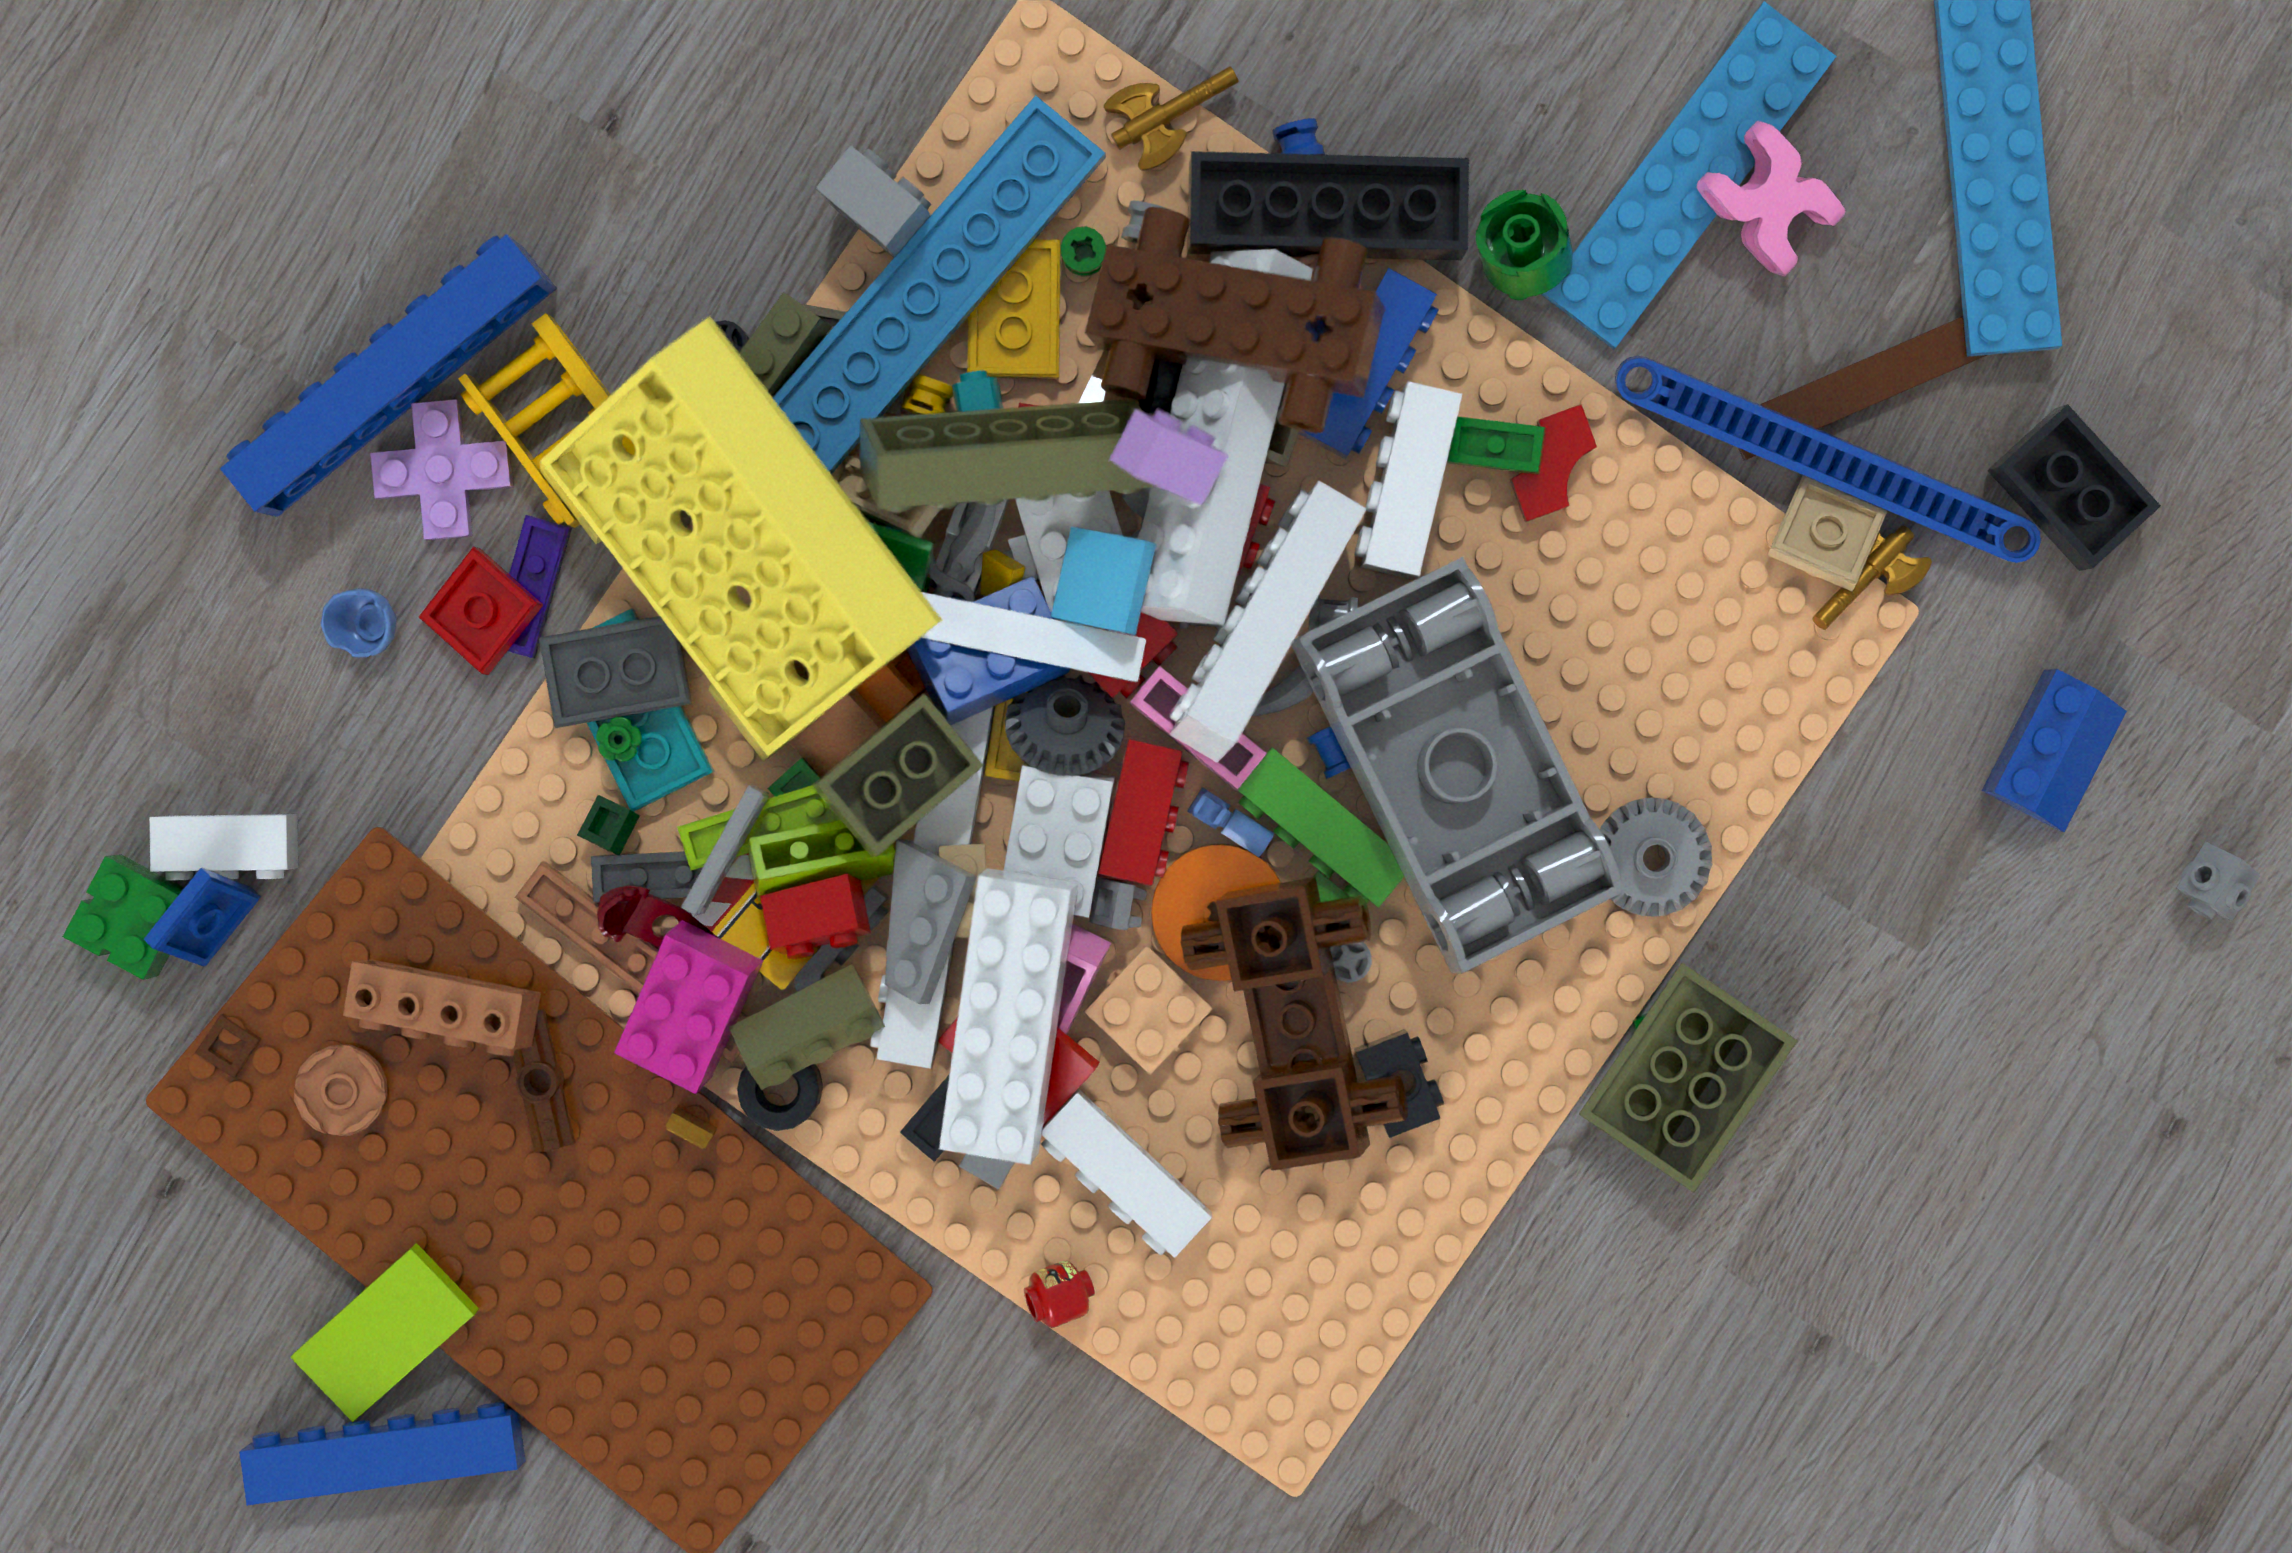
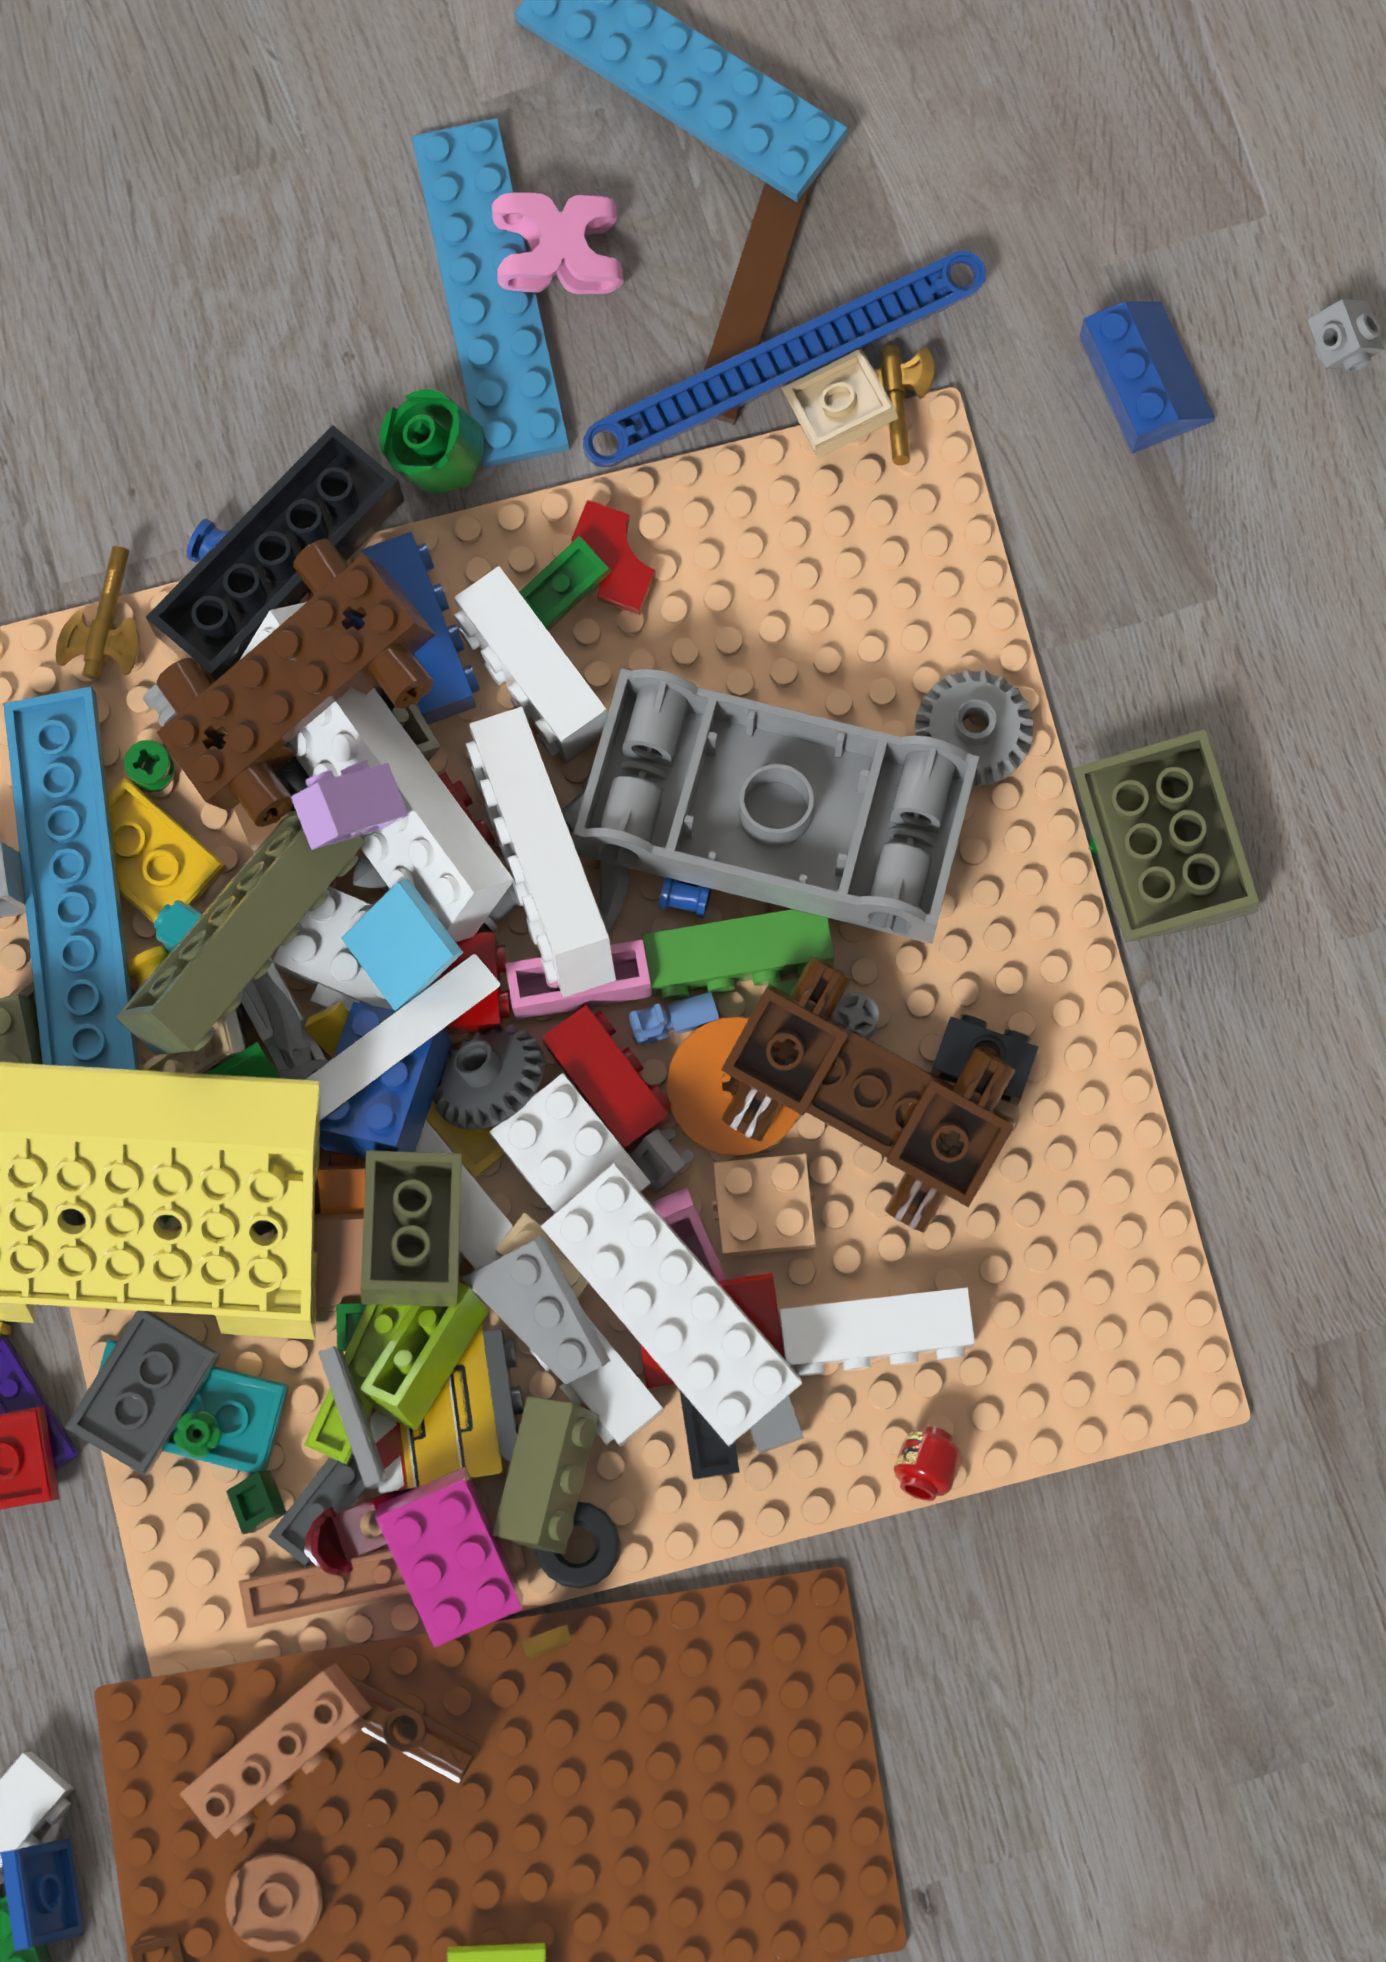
camera: 45 degrees left, 10 degrees down
(816, 915) = (465, 1392): red brick -> none
(2074, 488) = (960, 202): black brick -> none

